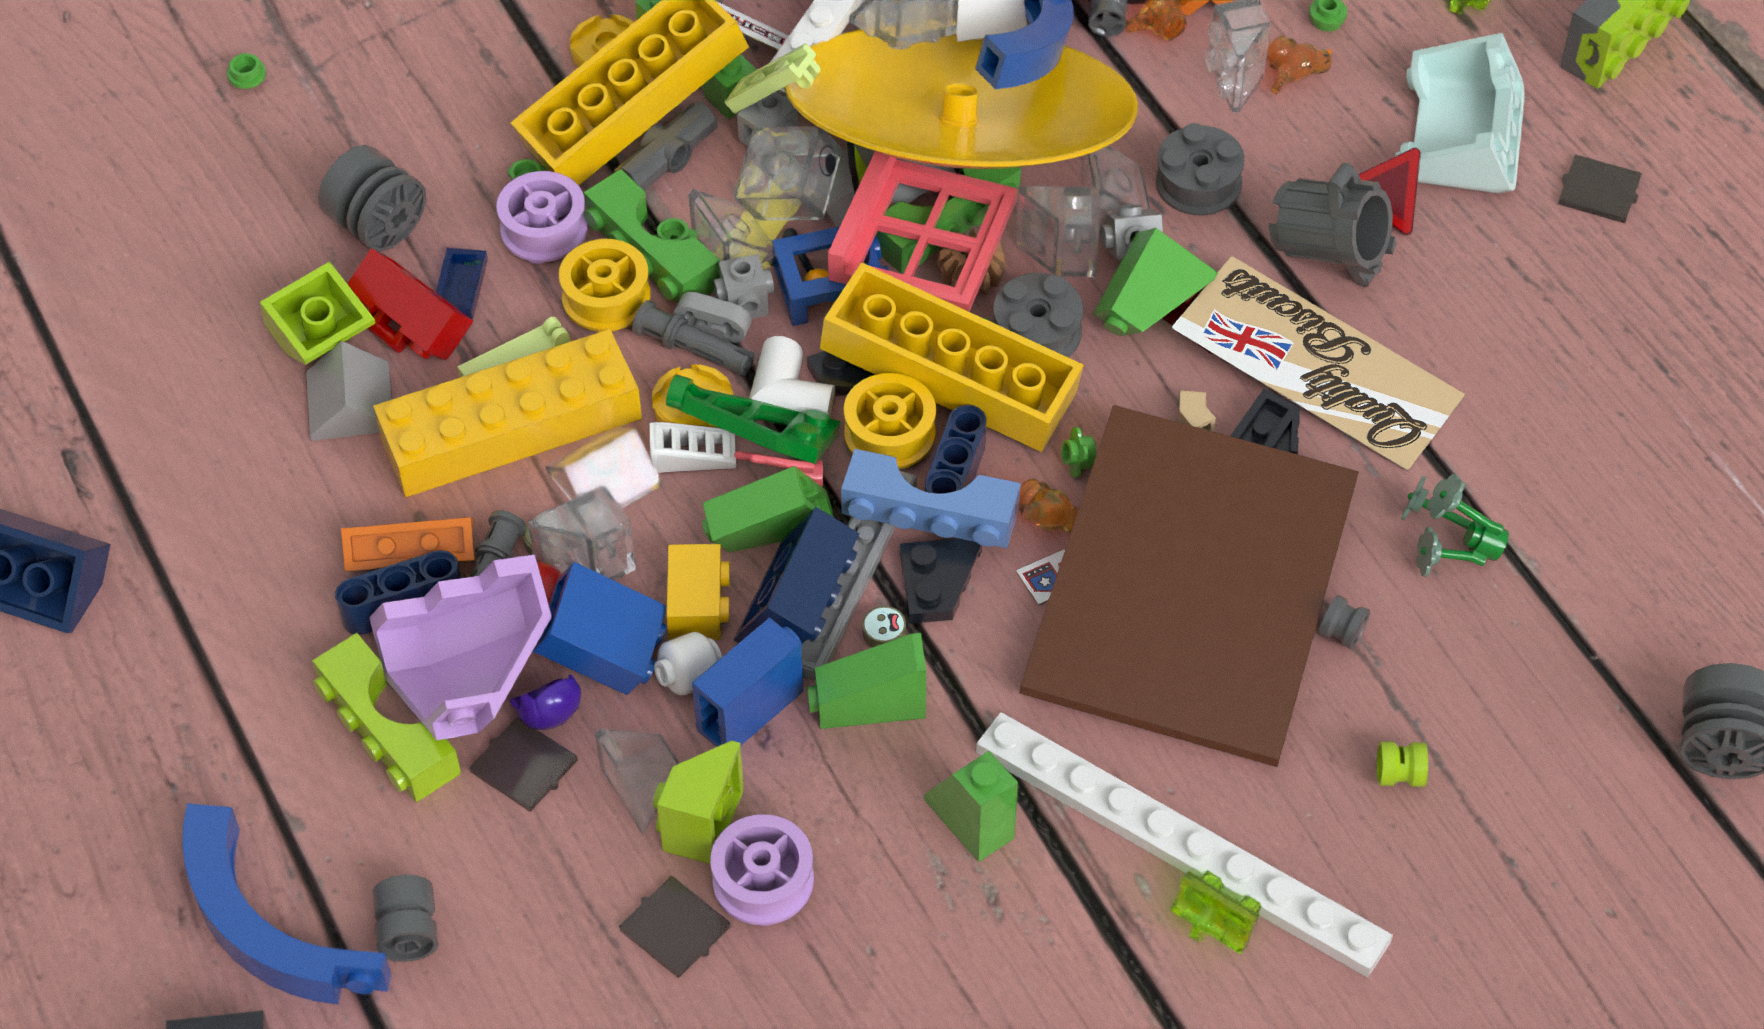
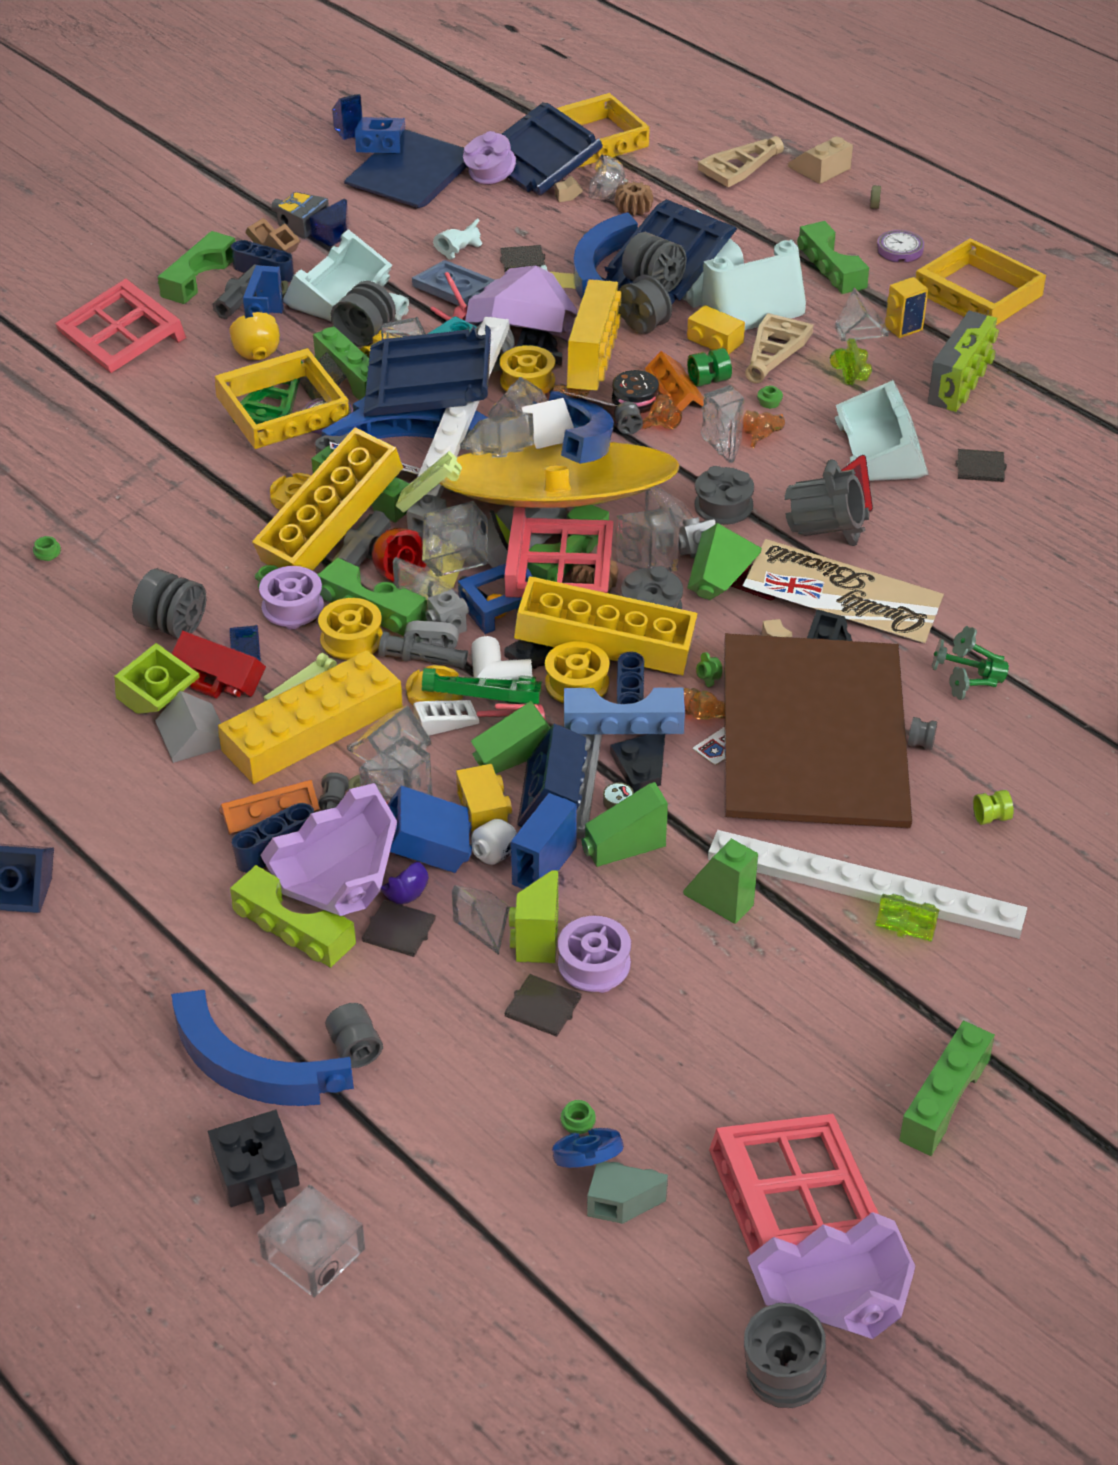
camera: 15 degrees left, 10 degrees down
(706, 168) = (397, 543): none -> red cylinder

